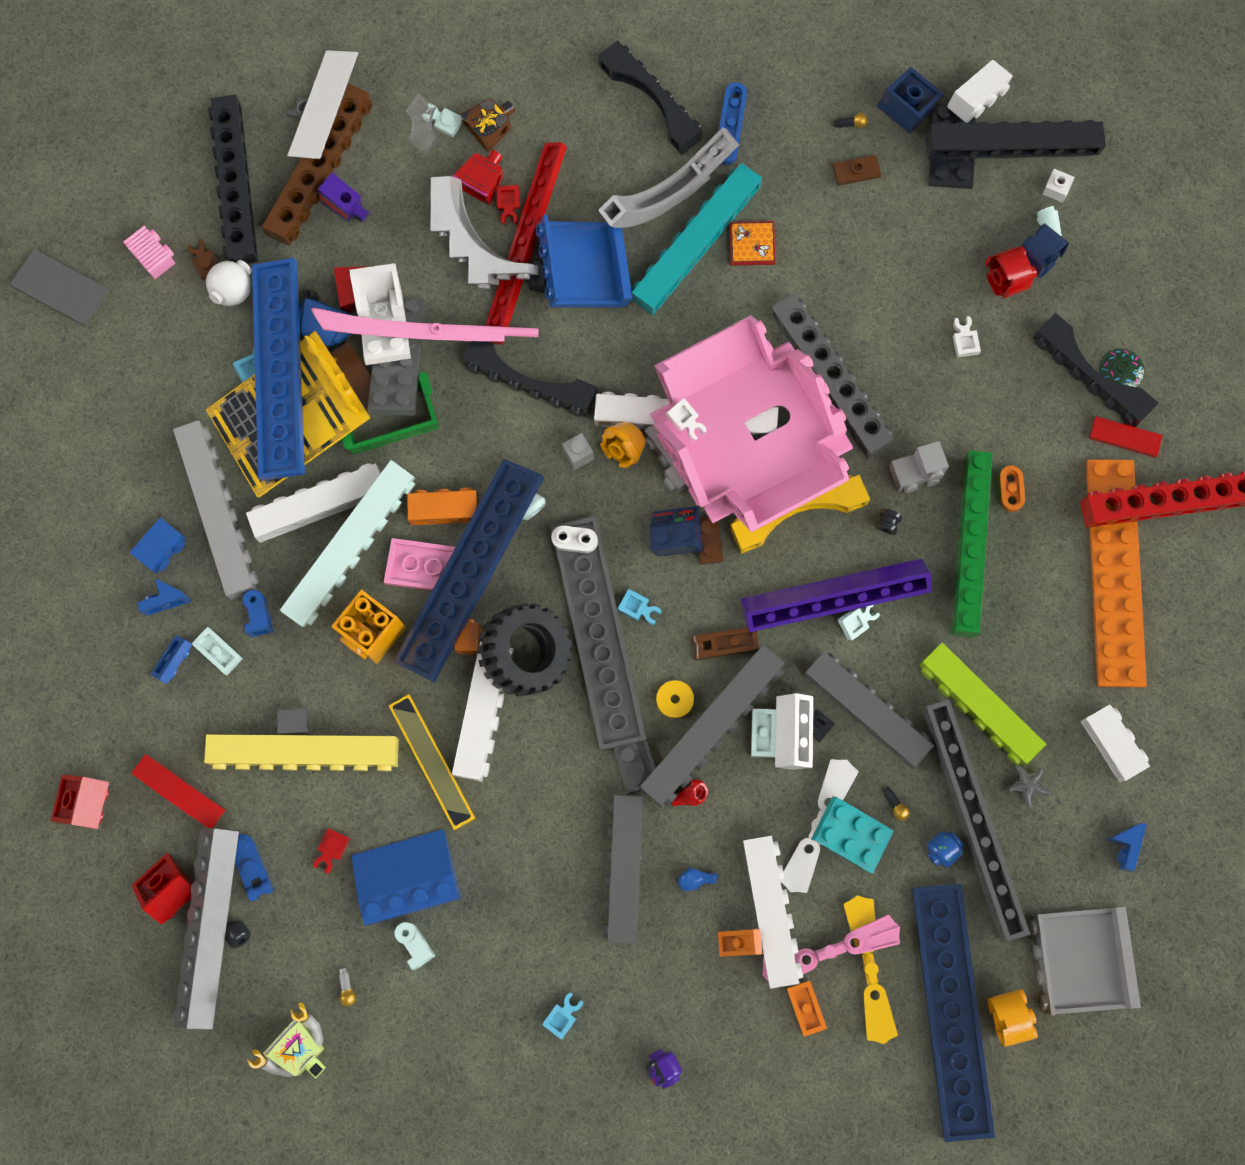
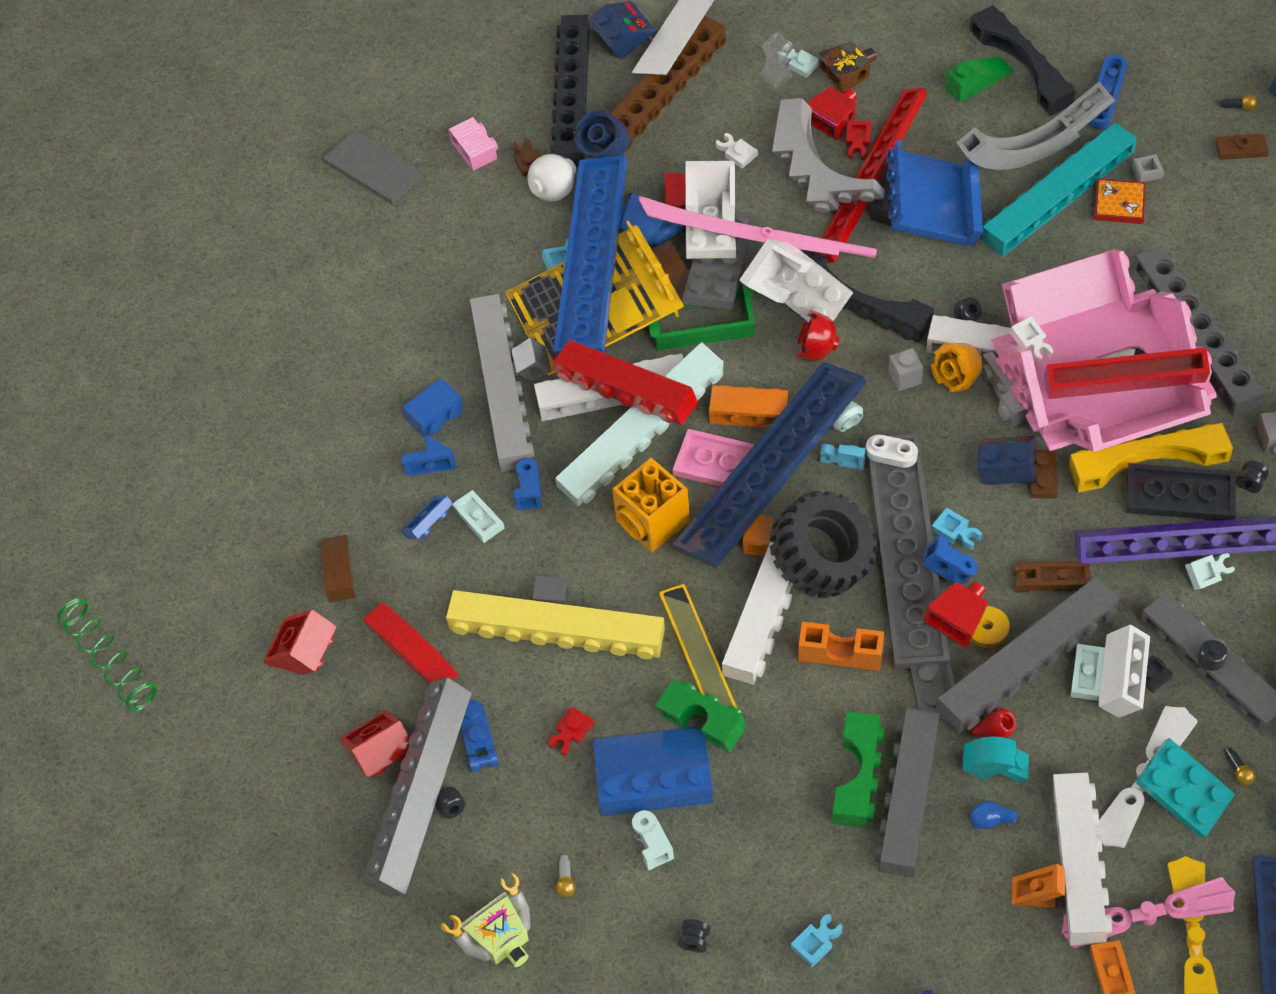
camera: 10 degrees right, 20 degrees down
(99, 721) = (337, 569): none -> reddish brown slope
(239, 485) = (531, 360): none -> dark grey brick
(268, 238) = (601, 135): none -> dark blue brick
(270, 104) = (621, 27): none -> dark blue slope
(327, 511) = (625, 383): none -> red brick
(342, 199) = (682, 114): dark purple torso -> none
(399, 230) = (737, 151): none -> white plate
(459, 831) = (683, 702): none -> green arch
(461, 1028) = (694, 935): none -> black wheel
(466, 370) = (795, 279): none -> white bracket
(495, 428) = (818, 336): none -> red cylinder
(539, 546) = (846, 456): none -> medium azure plate
(551, 742) = (823, 647): none -> orange arch
(579, 886) = (852, 800): none -> green arch
(610, 120) = (975, 76): none -> green slope
(627, 380) = (968, 309): none -> black piece
(635, 646) = (948, 562): none -> blue leg
(650, 696) = (958, 612): none -> red torso
(694, 830) = (995, 756): none -> teal brick
(773, 450) = (1126, 373): none -> red brick
(774, 207) = (1147, 169): none -> light grey brick
(828, 544) = (1181, 492): none -> black plate
(866, 710) = (1212, 655): none -> black piece

